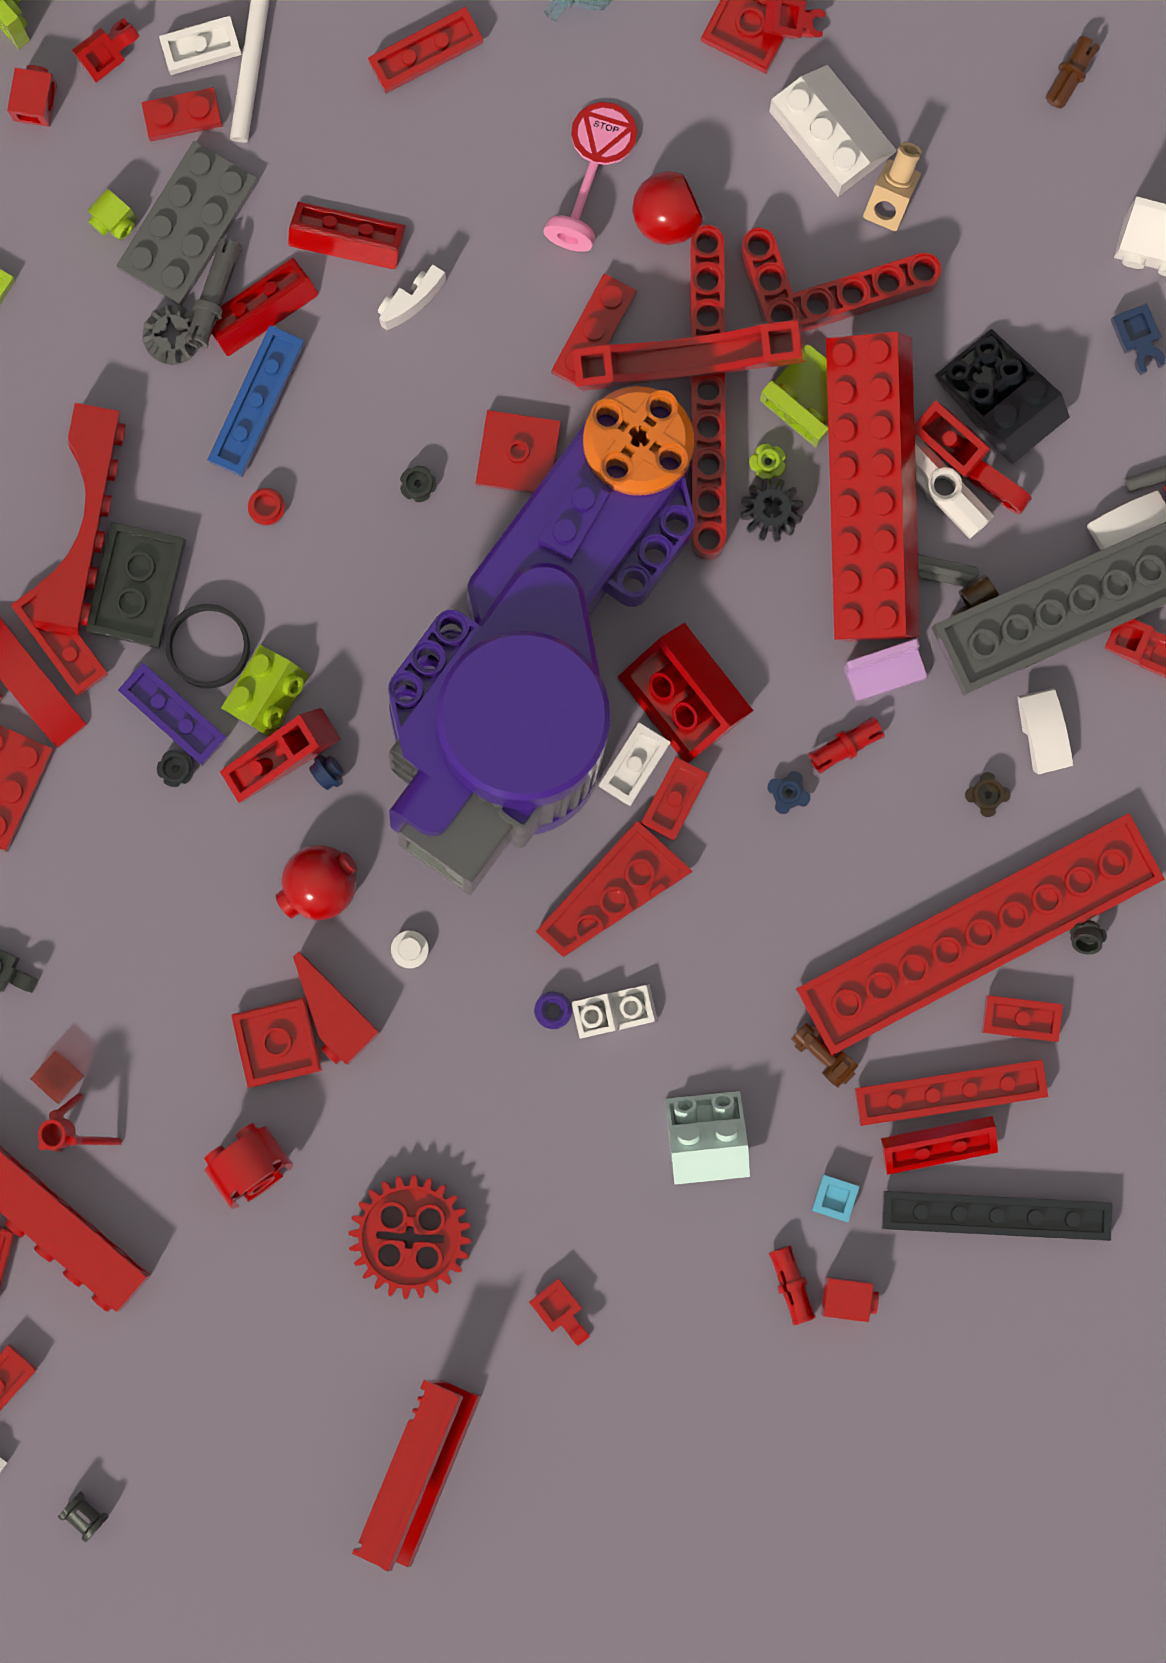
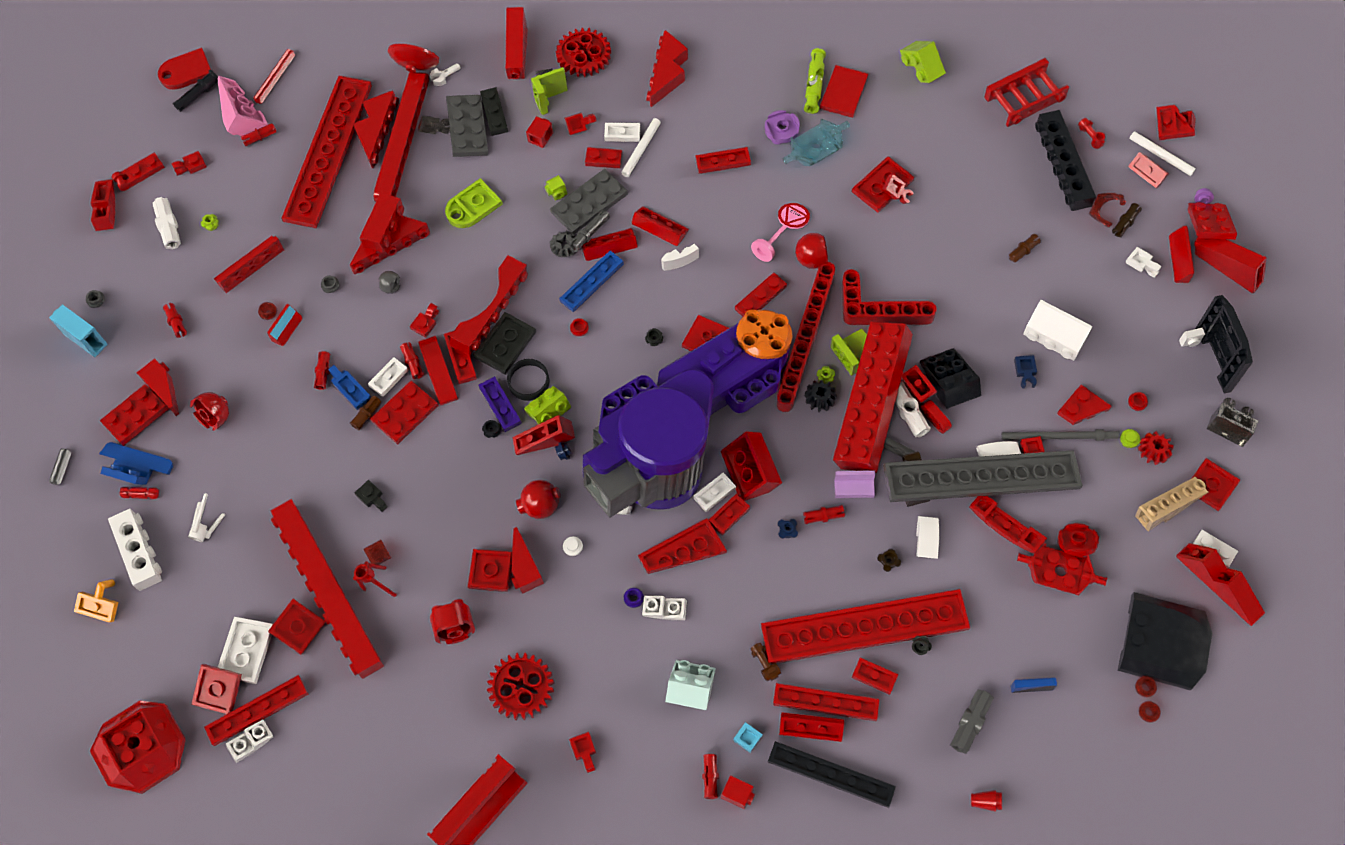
camera: 20 degrees right, 20 degrees down
(79, 1503) = (302, 783): pearl dark grey bush -> none
(689, 357) = (835, 314): red arch -> none
(831, 128) = (900, 241): white slope -> none
(895, 186) = (924, 271): tan bracket -> none

